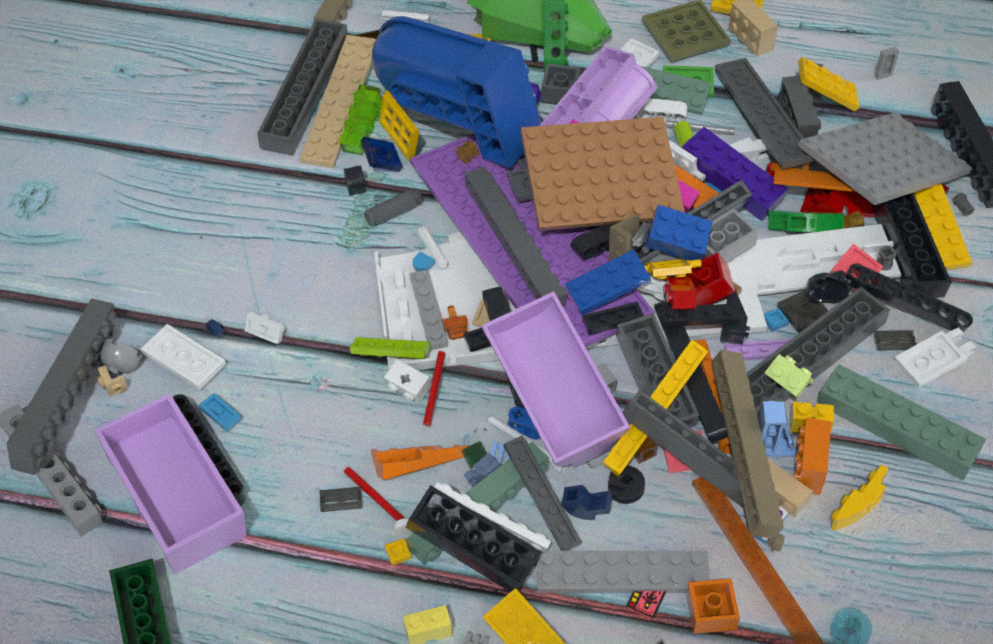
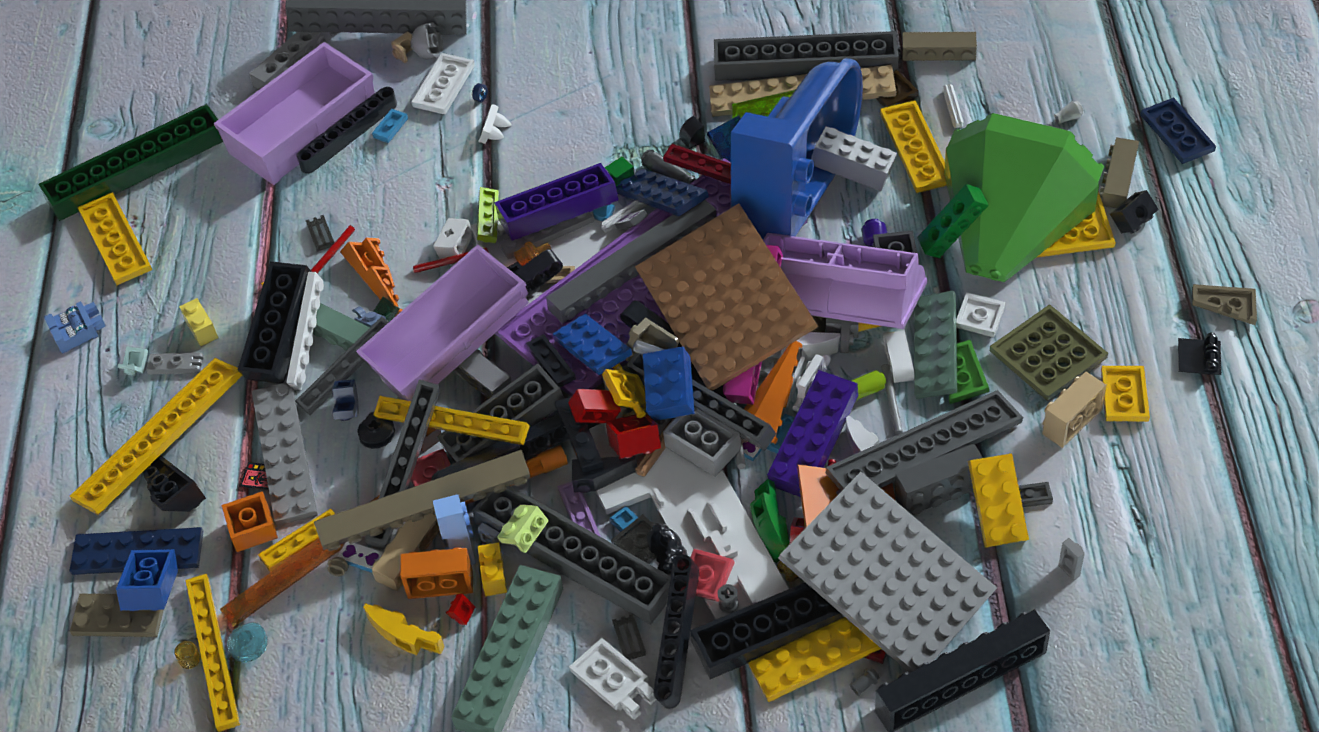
camera: 80 degrees right, 0 degrees up
(380, 241) = (620, 170): none -> green brick
(410, 284) = (556, 201): none -> dark purple brick
(427, 161) = (698, 163): none -> dark red plate
(433, 207) = (661, 192): none -> dark blue plate
(452, 237) = (631, 220): none -> dark grey tile
(734, 568) = (291, 544): none -> yellow tile
(848, 450) = (461, 609): none -> red tile

